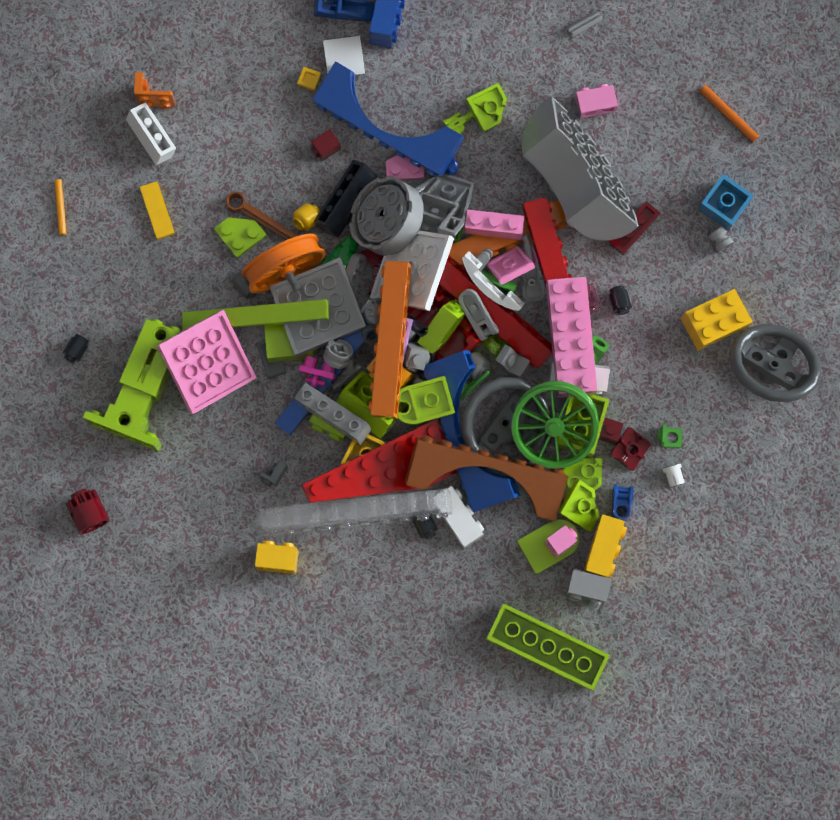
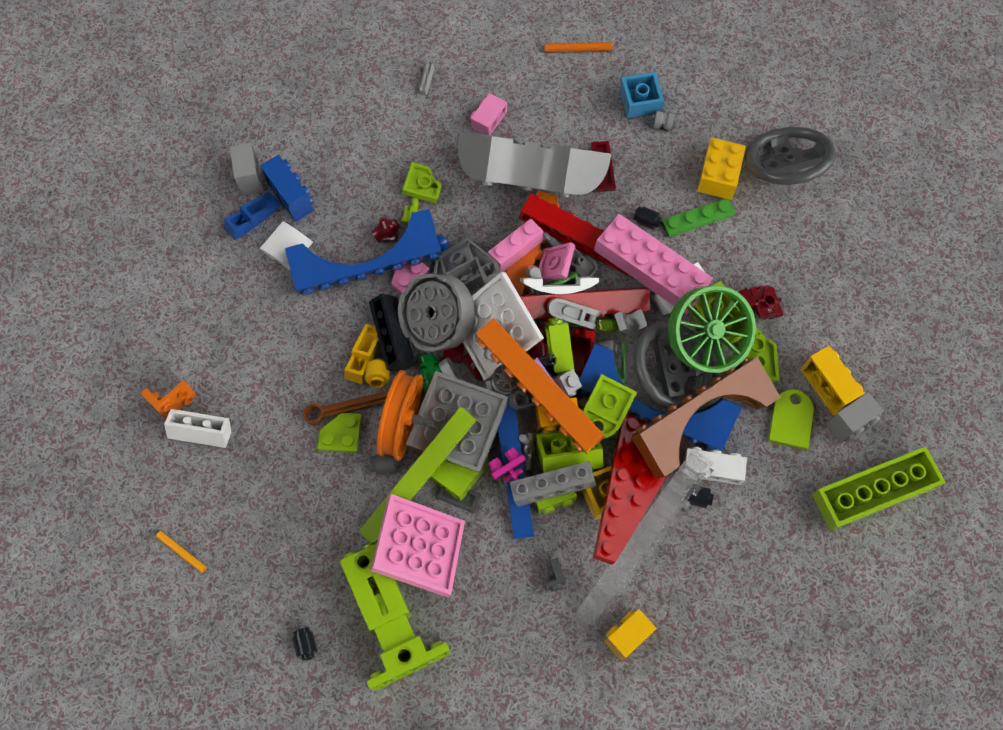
camera: 45 degrees left, 10 degrees down
(157, 210) = (260, 478): yellow tile -> none
(309, 79) = (277, 282): yellow plate -> none
(310, 192) = (362, 353): none -> yellow slope
(325, 145) = (337, 313): dark red brick -> none
(338, 353) = (510, 437): light grey wheel -> none
(423, 117) = (386, 229): none -> dark red rock
(561, 541) = (803, 405): bright pink brick -> none
(580, 506) = (782, 371): lime plate -> none
(622, 499) = (801, 340): blue piece -> none
(658, 338) = (698, 217): none -> bright green plate
(662, 437) = (776, 272): bright green bracket -> none
(674, 475) = (812, 290): white bush -> none

